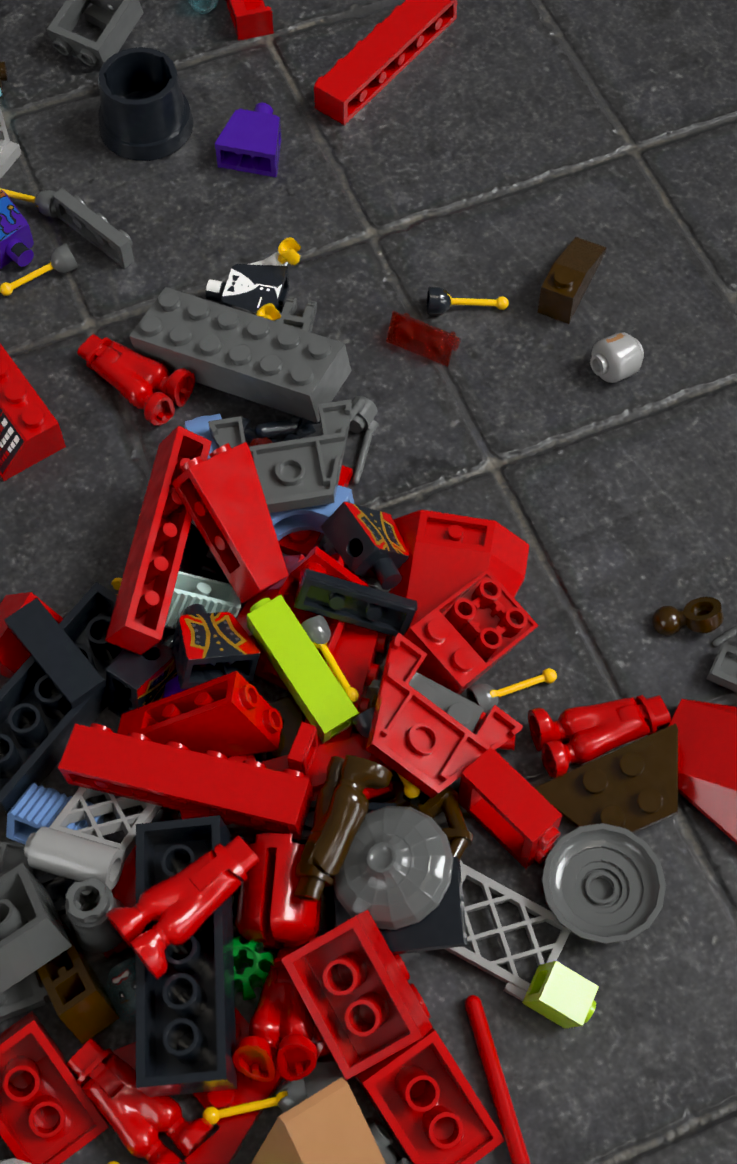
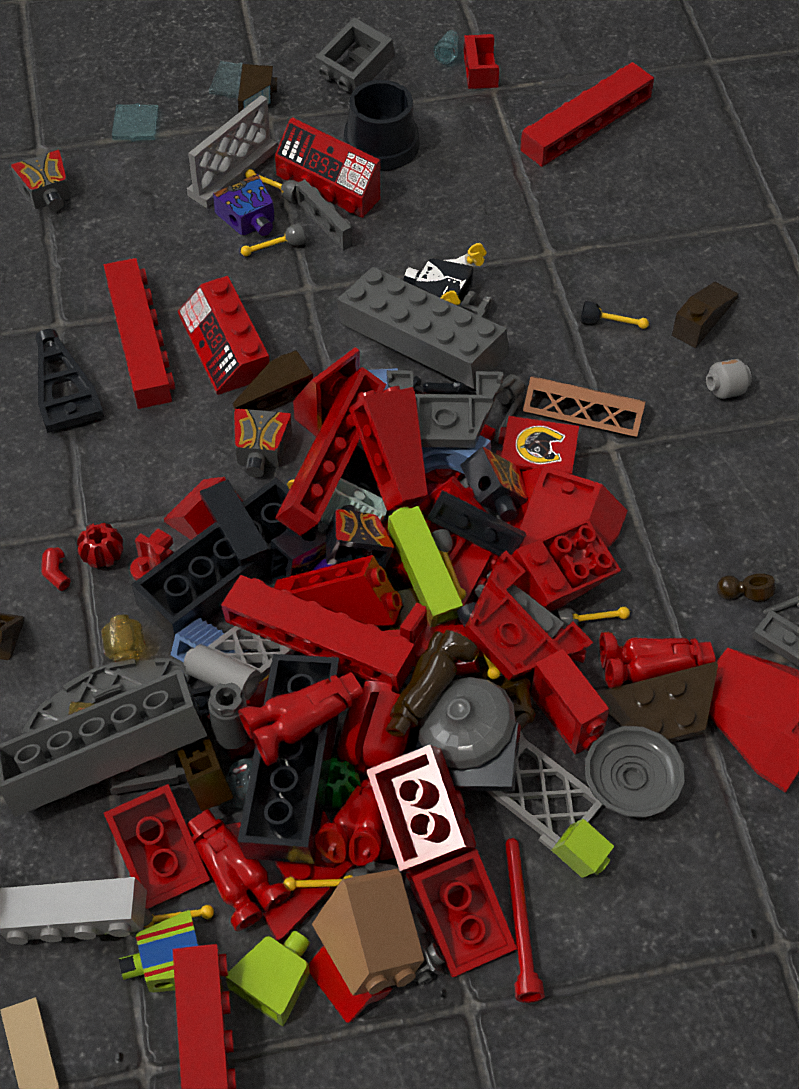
camera: 10 degrees right, 5 degrees down
(68, 531) = (261, 439): none -> torso
(75, 457) = (276, 384): none -> dark brown slope
(86, 164) = (332, 166): none -> slope
(129, 473) = (319, 395): none -> red slope
(139, 378) = (336, 331): red piece -> none
(251, 141) = (463, 167): dark purple torso -> none
(408, 481) = (538, 444): none -> red panel
(422, 338) = (572, 339): clear red hinge -> none
(453, 406) = (584, 394): none -> nougat fence

